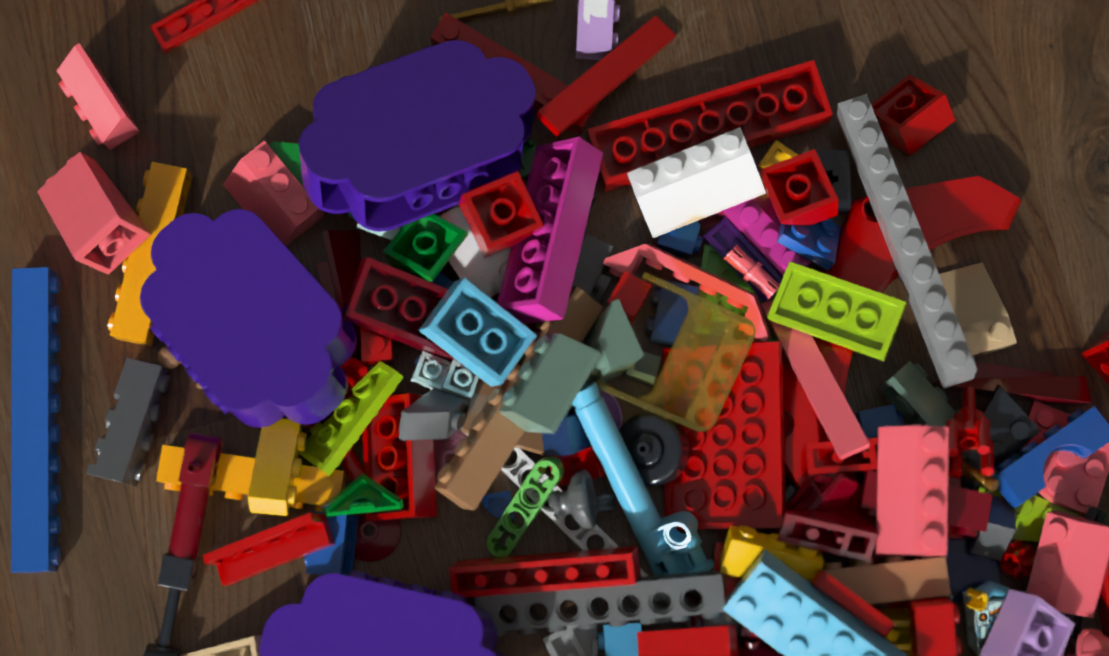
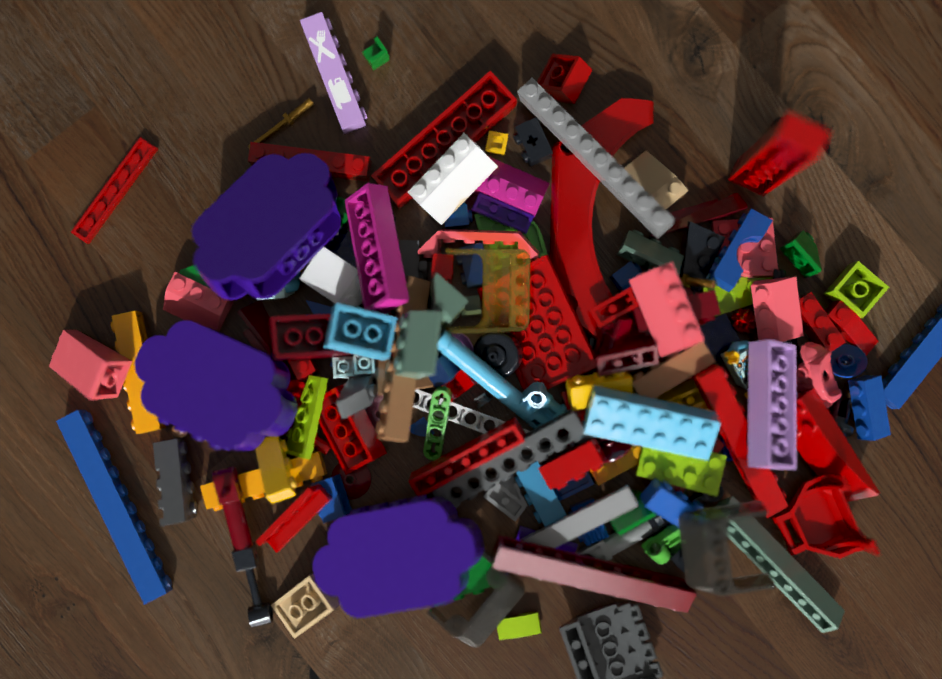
camera: 25 degrees left, 5 degrees up
(95, 99) = (58, 292): coral slope -> none
(362, 496) = (336, 462): green tile -> none
(424, 246) = (303, 293): green slope -> none
(500, 214) = (341, 252): red slope -> none
(578, 500) = (467, 405): dark grey hair -> none
(605, 76) = (367, 137): red tile -> none
(752, 271) = (510, 218): coral pin -> none
(800, 190) = (518, 155): red slope -> none
(813, 242) = (534, 180): blue plate -> none
(820, 388) = (577, 266): coral tile -> none
(836, 311) = (572, 220): lime plate -> none
(852, 603) = (660, 394): red beam -> none
(968, 432) = (685, 257): red plant -> none
(999, 531) = (727, 309): dark grey slope -> none

